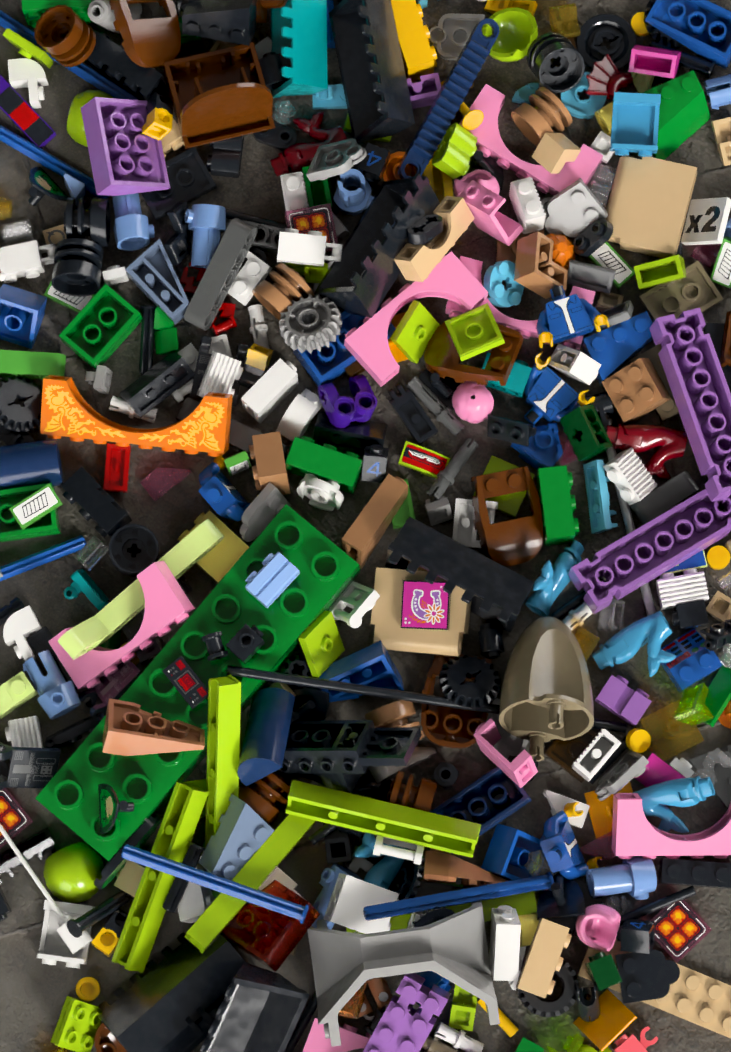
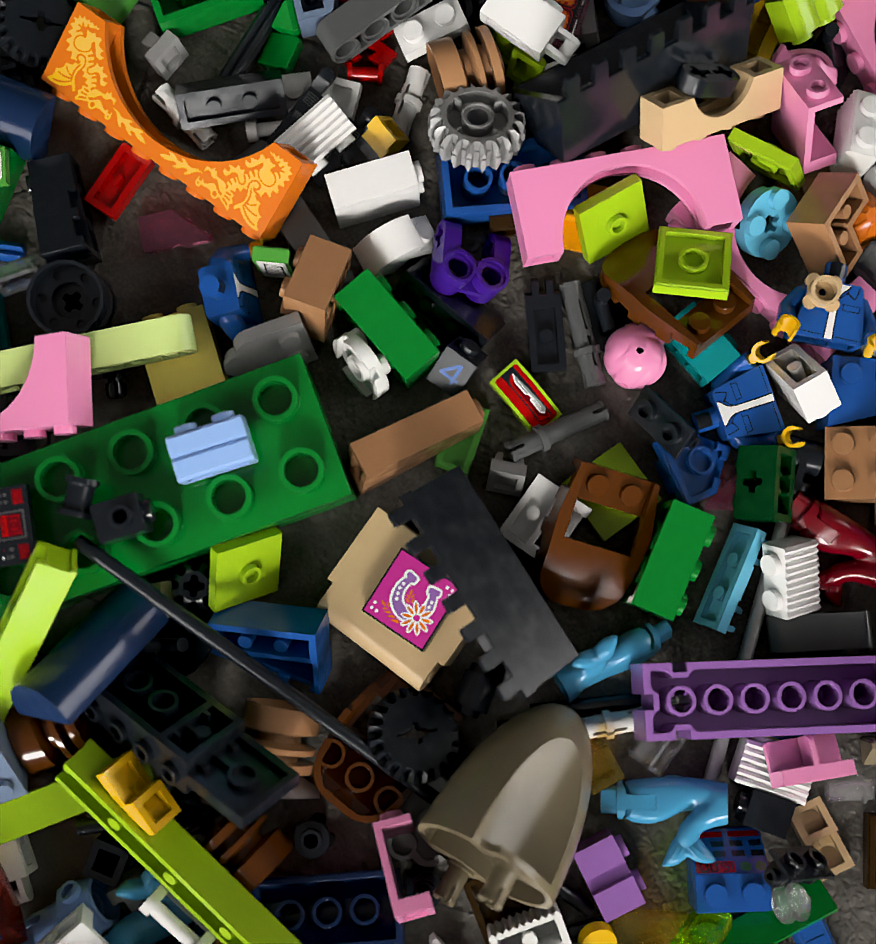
camera: 25 degrees right, 5 degrees up
(342, 793) = (141, 798): none -> yellow slope
(356, 597) = (331, 535): white plate -> none
(483, 249) = (767, 159): none -> lime plate
(557, 303) = (832, 287): none -> tan plate
(694, 572) = (805, 760): none -> bright pink panel
(718, 557) = (850, 747): yellow tile -> none

